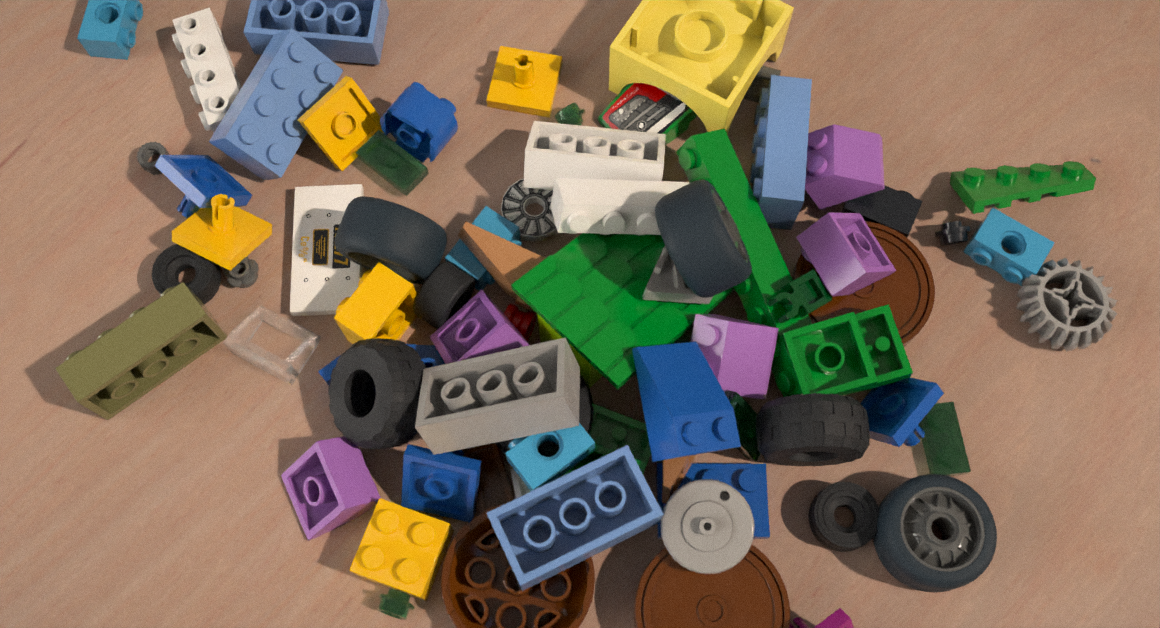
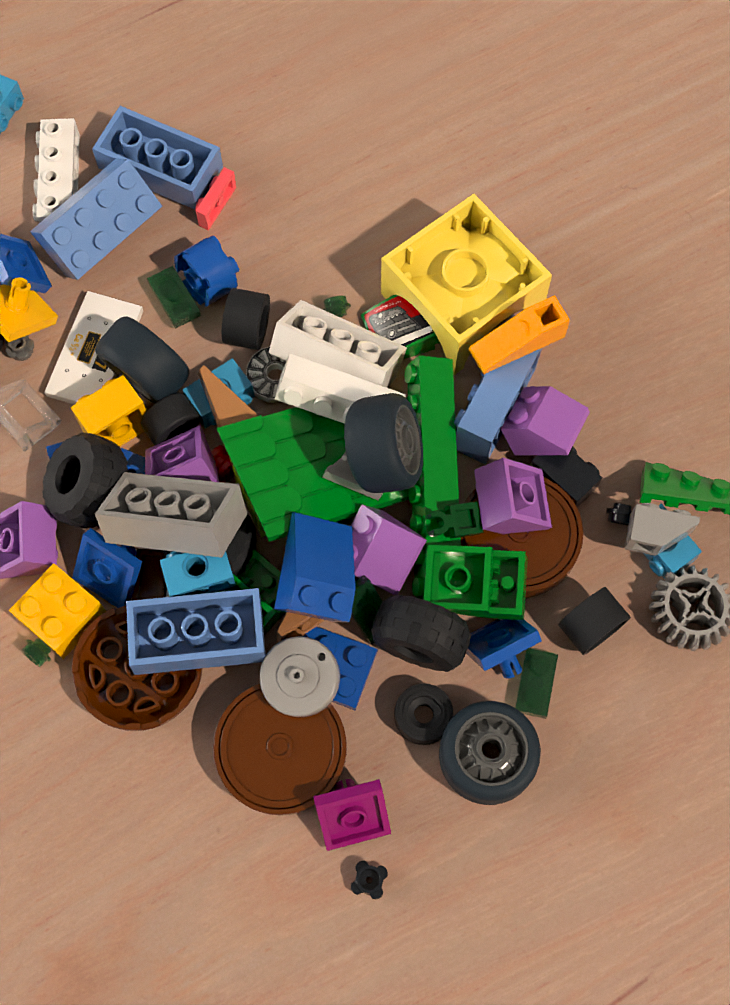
camera: 20 degrees right, 0 degrees up
(341, 122) = (143, 250): yellow tile -> none
(397, 36) = (219, 192): none -> coral plate
(482, 159) = (245, 318): none -> black piece
(524, 81) = (311, 263): yellow tile -> none
(792, 78) = (521, 335): none -> light orange slope
(980, 353) = (594, 620): none -> black piece
(1003, 236) = (655, 529): none -> light grey slope

